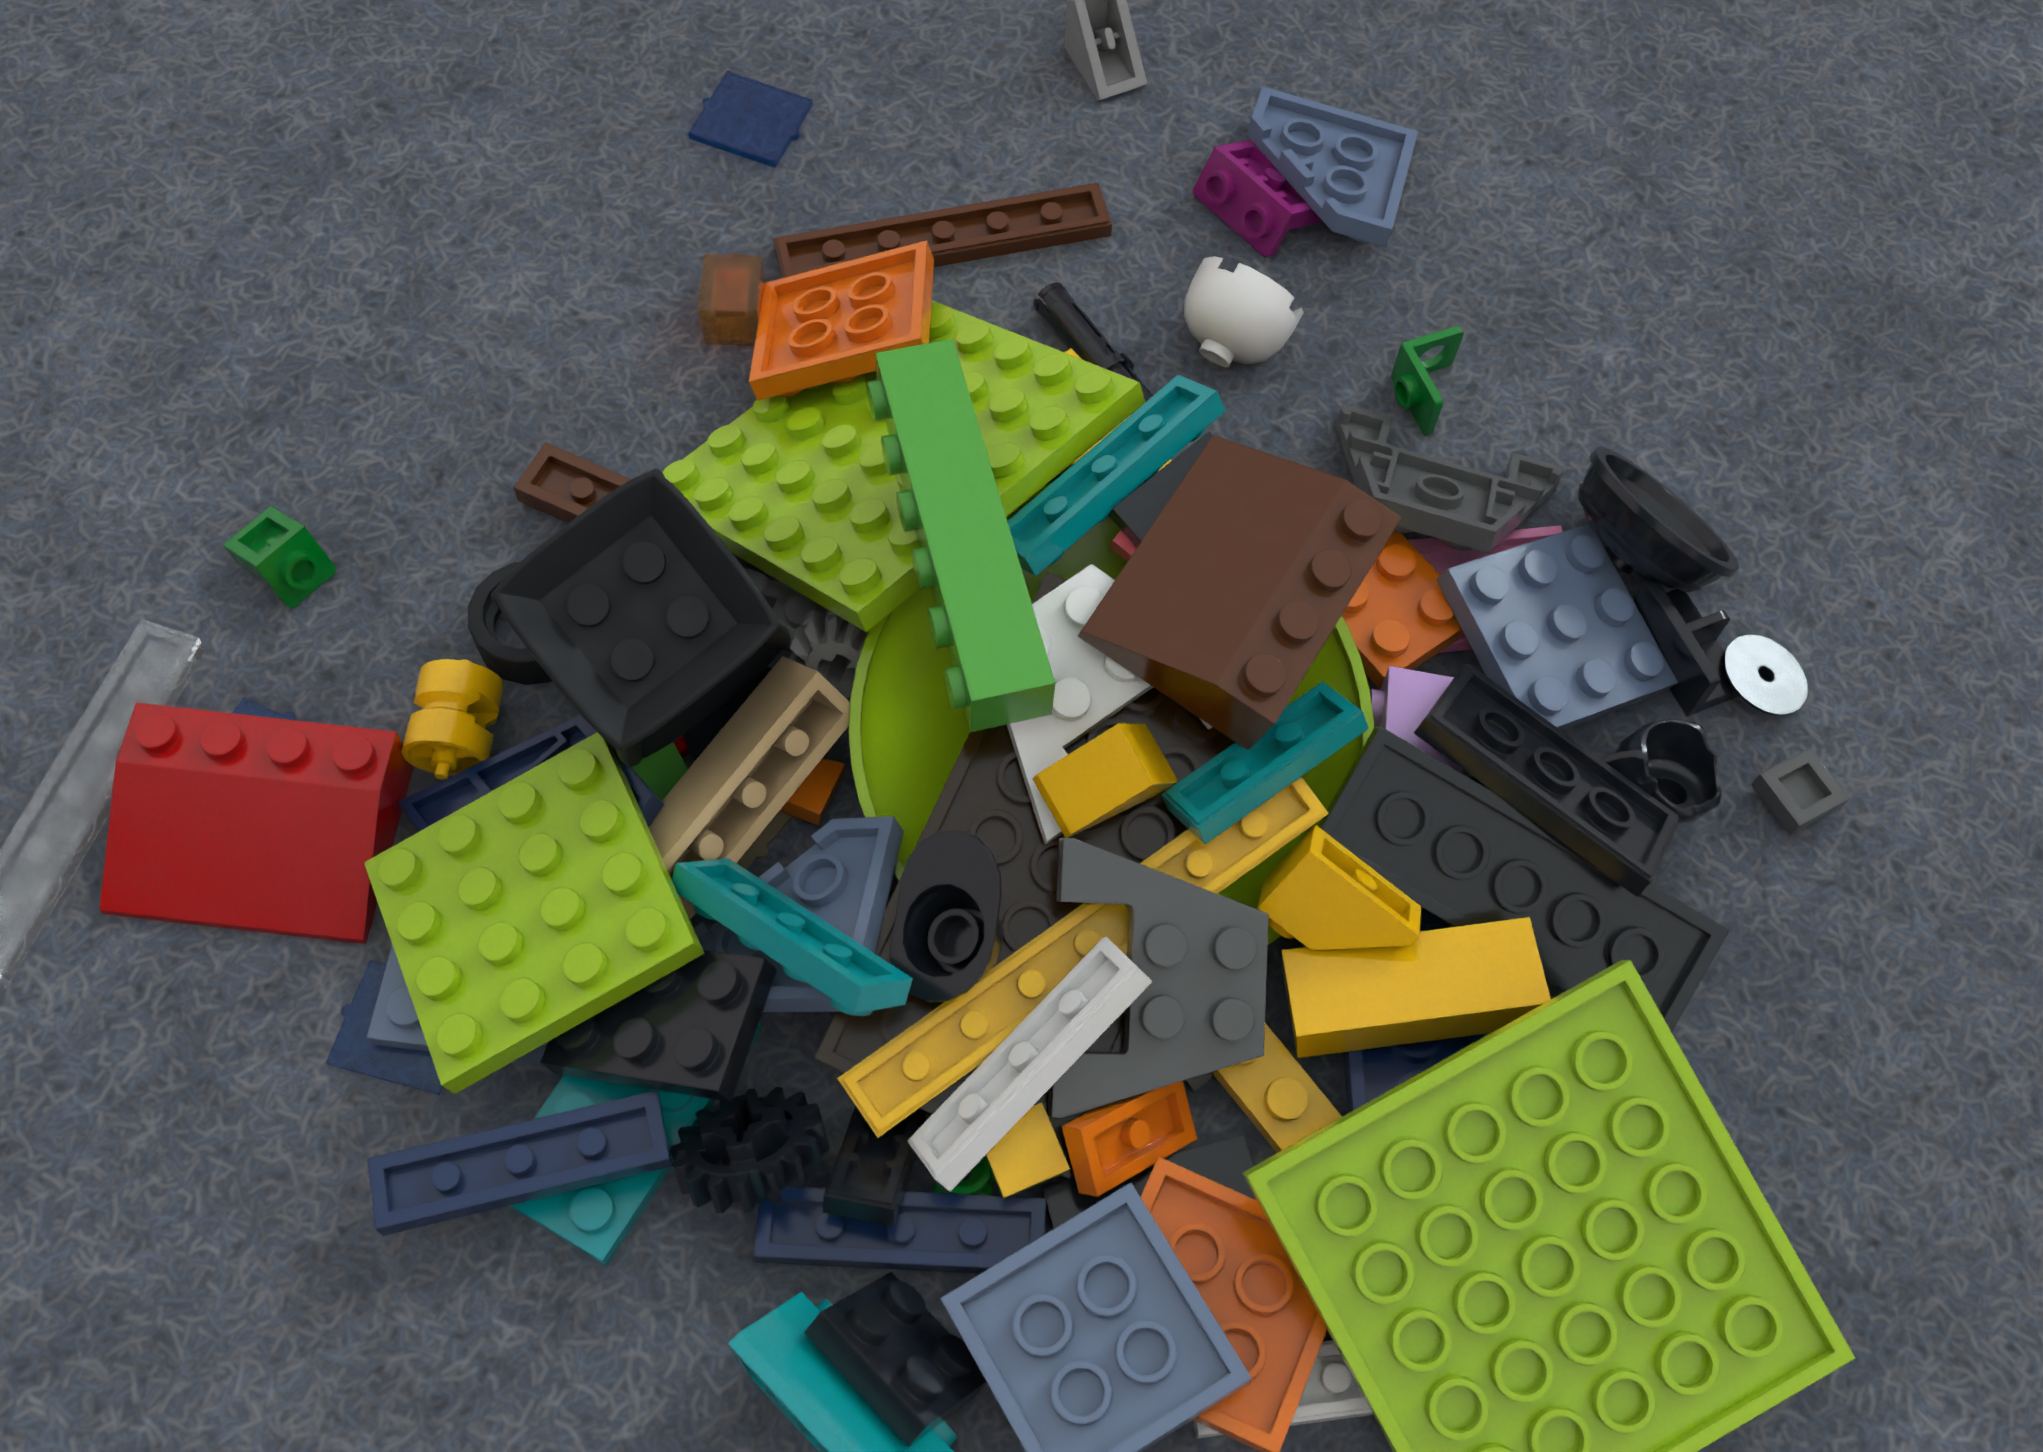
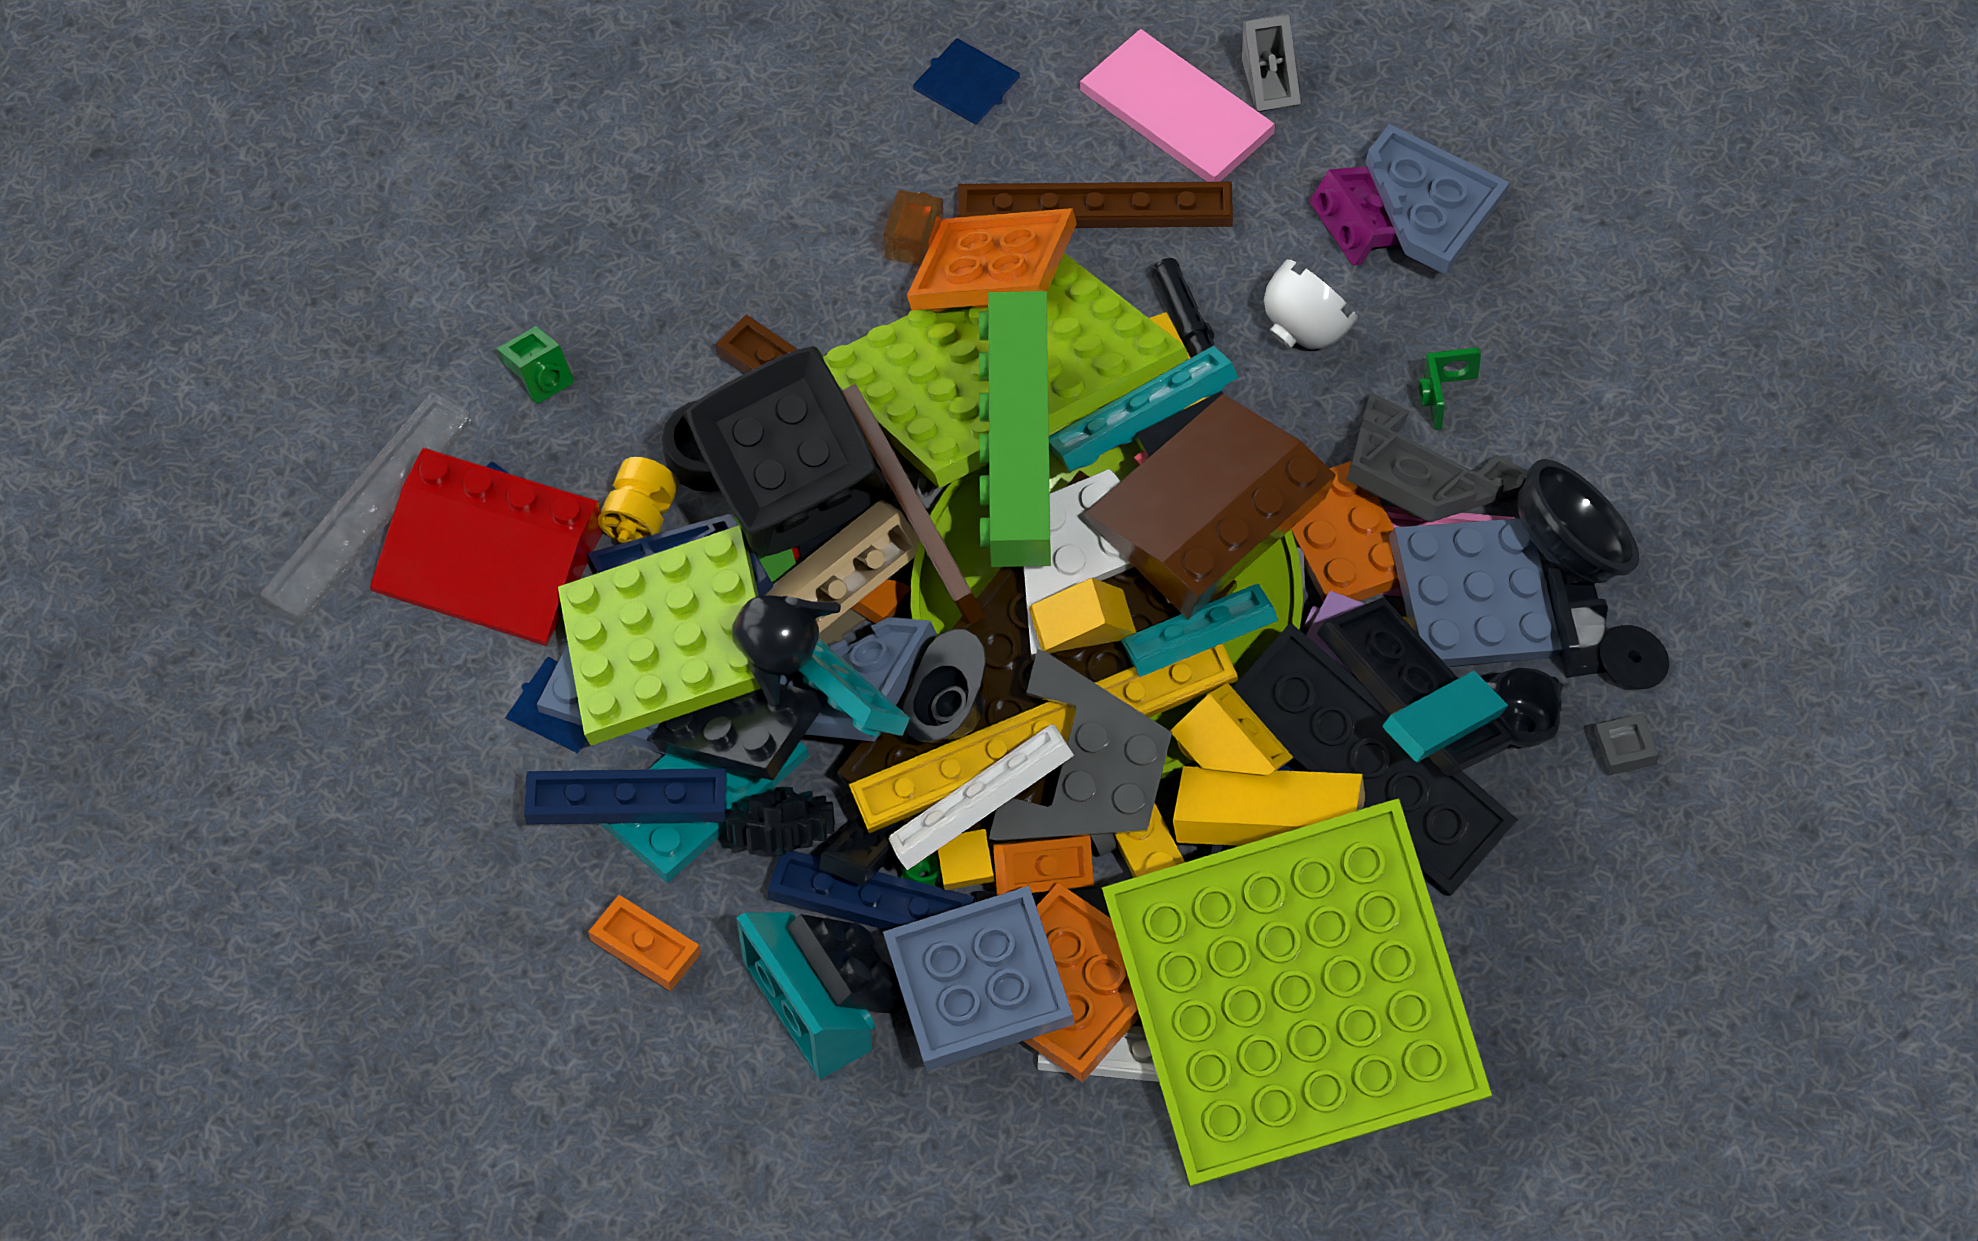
camera: 20 degrees right, 5 degrees down
(593, 1378) = (644, 942): none -> orange plate
(696, 897) = (778, 637): none -> black piece
(844, 672) = (913, 507): none -> reddish brown tile
(1007, 109) = (1177, 107): none -> bright pink tile
(1615, 817) = (1444, 716): none -> teal tile

